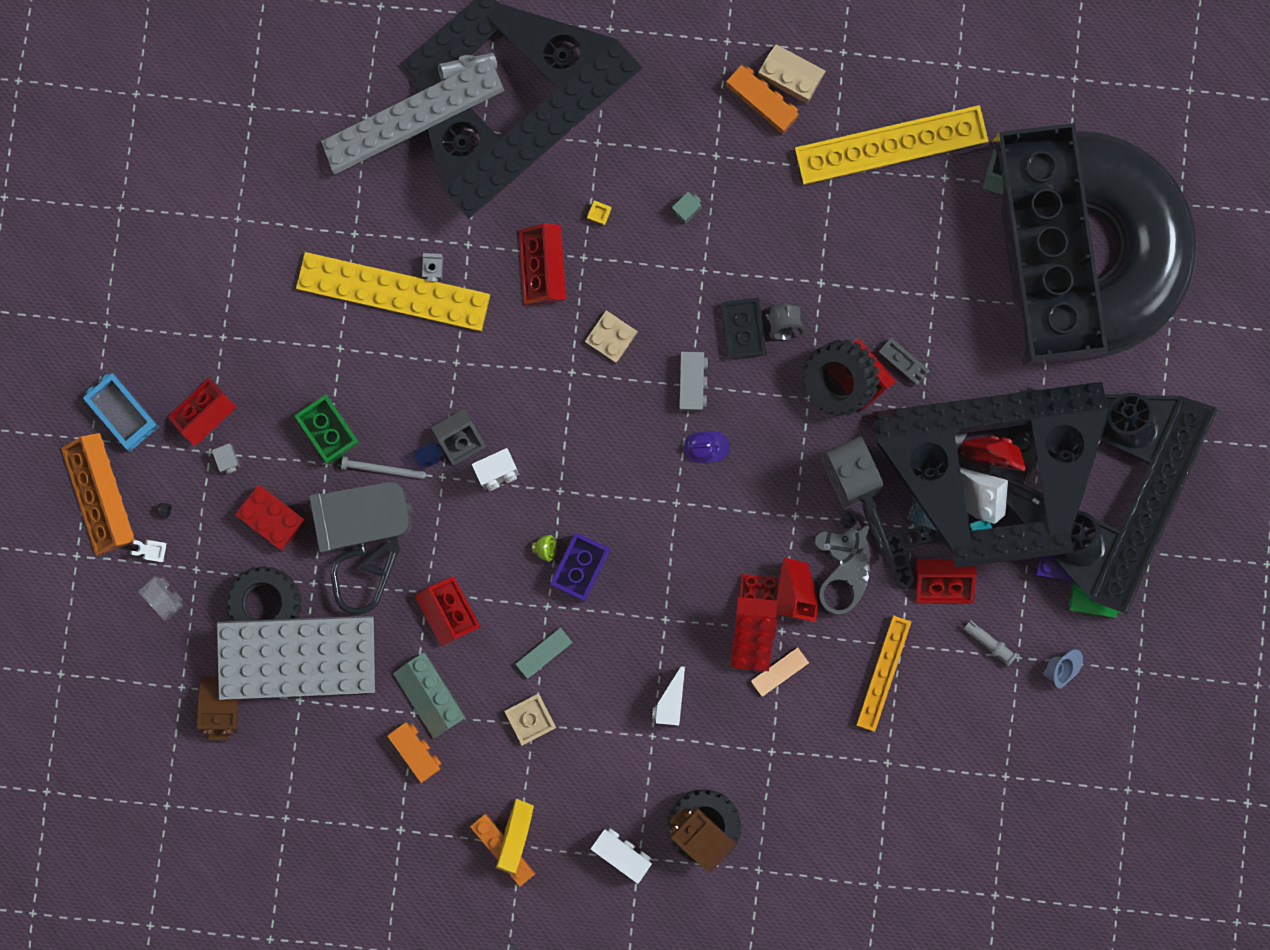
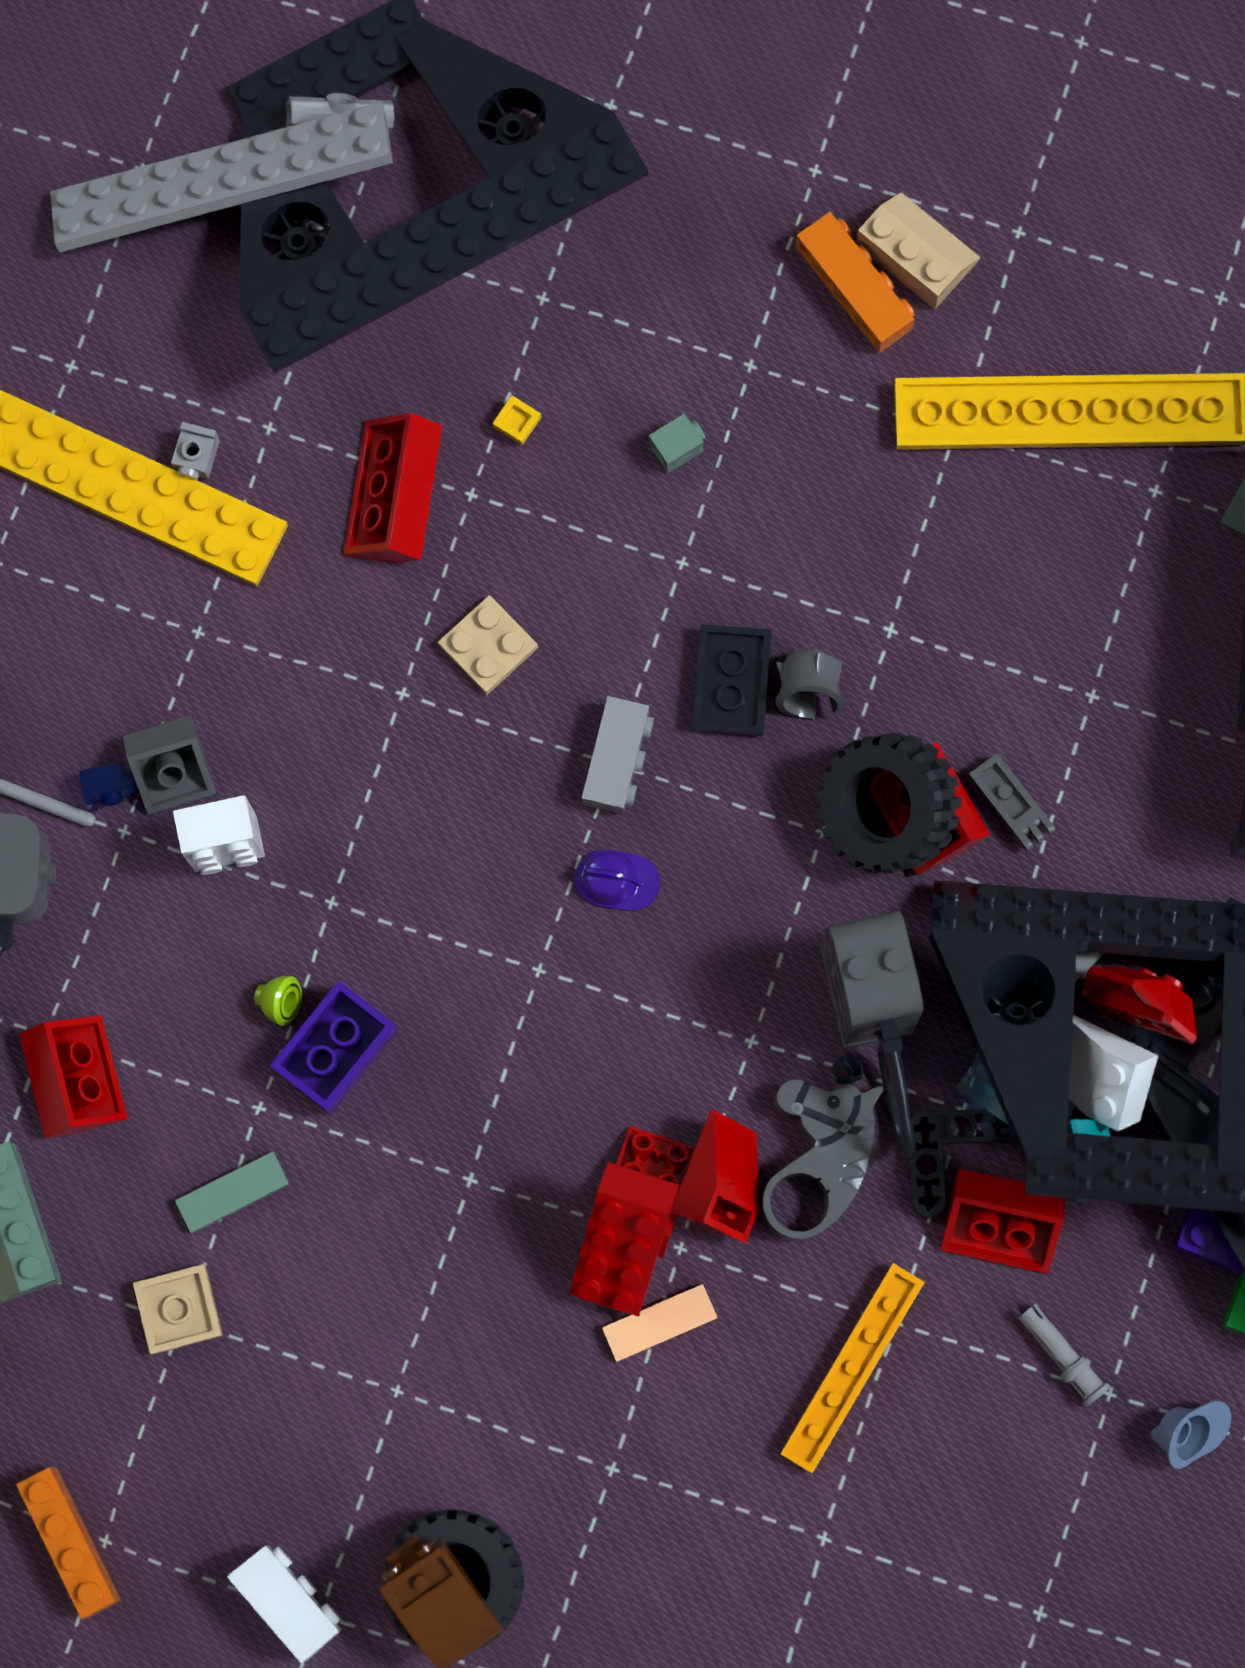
camera: 10 degrees right, 5 degrees down
(515, 836) = (94, 1523): yellow slope -> none
(670, 704) = (441, 1336): white slope -> none

